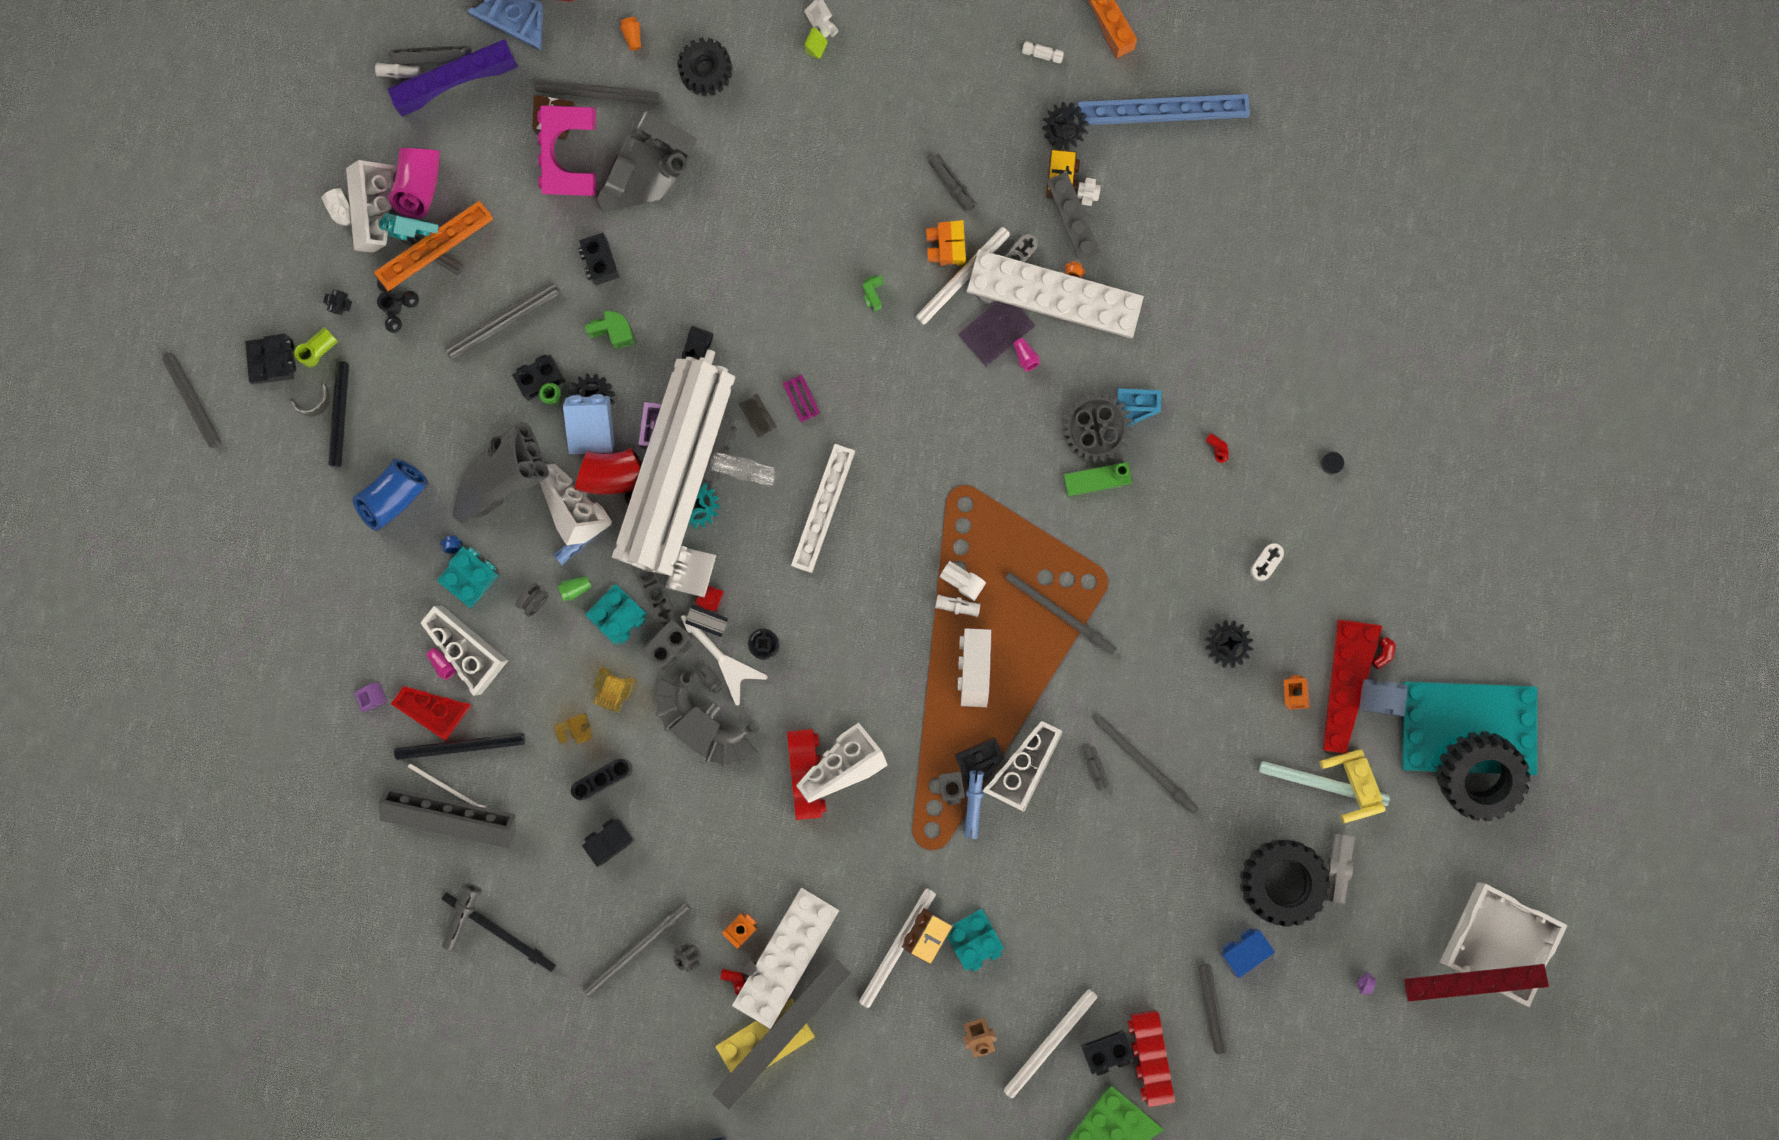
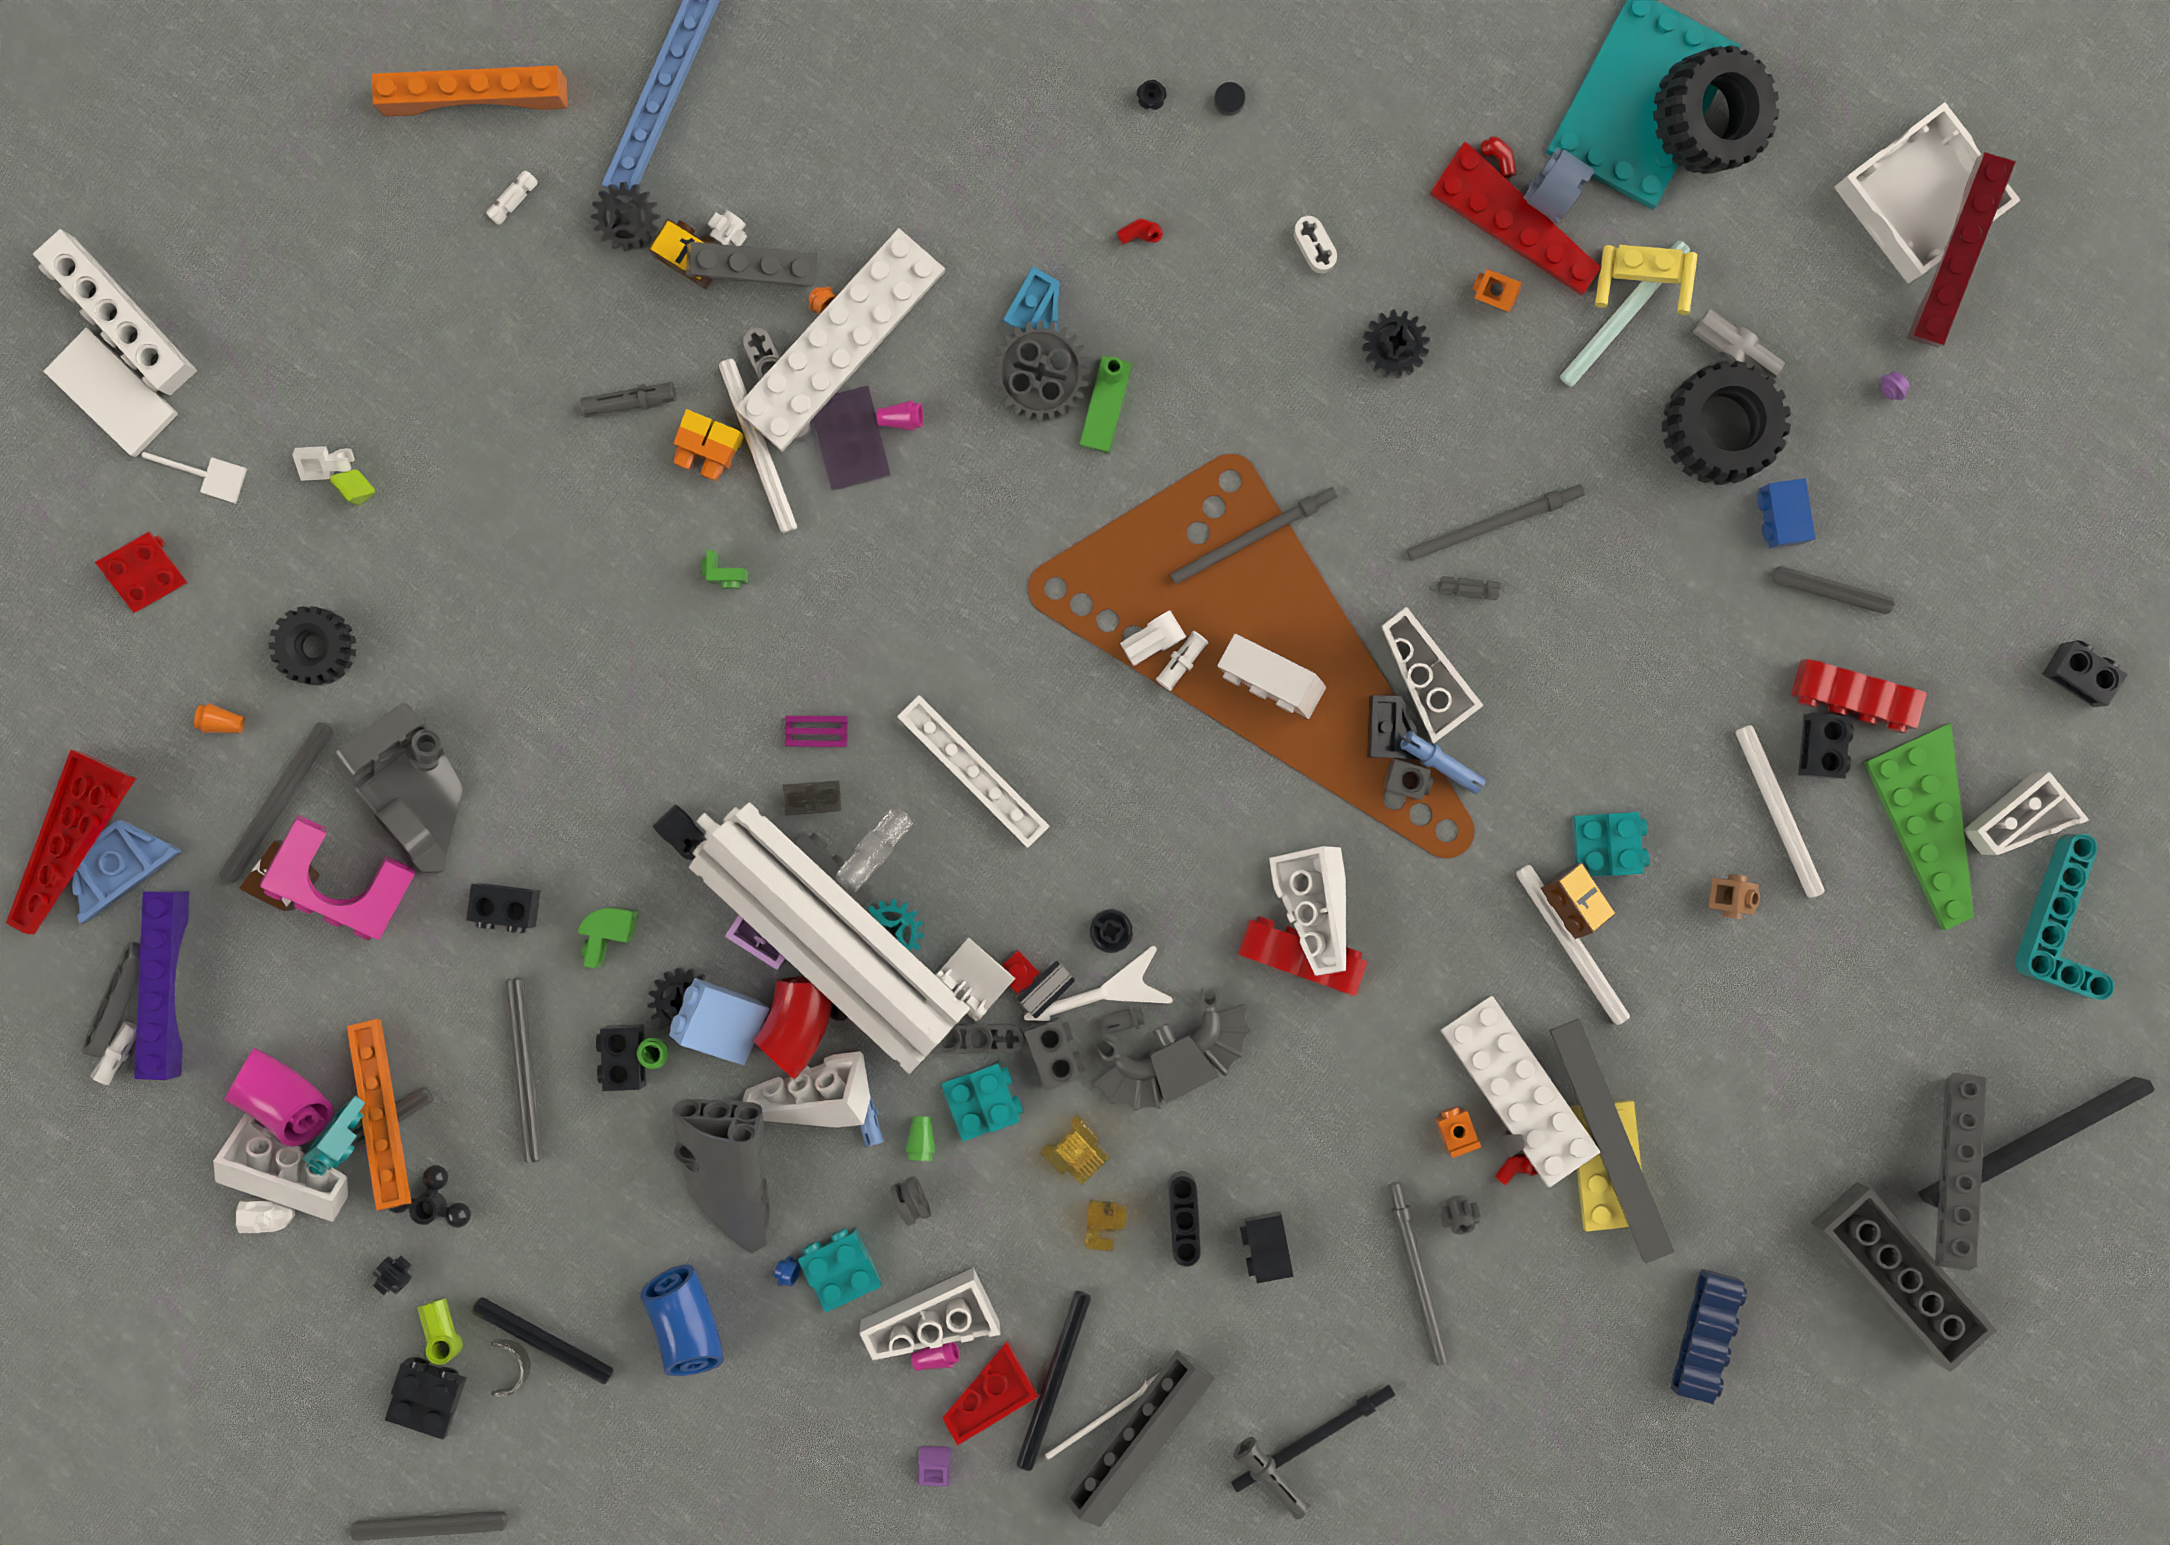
camera: 70 degrees left, 5 degrees up
(1313, 408) = (1154, 87): none -> black plate

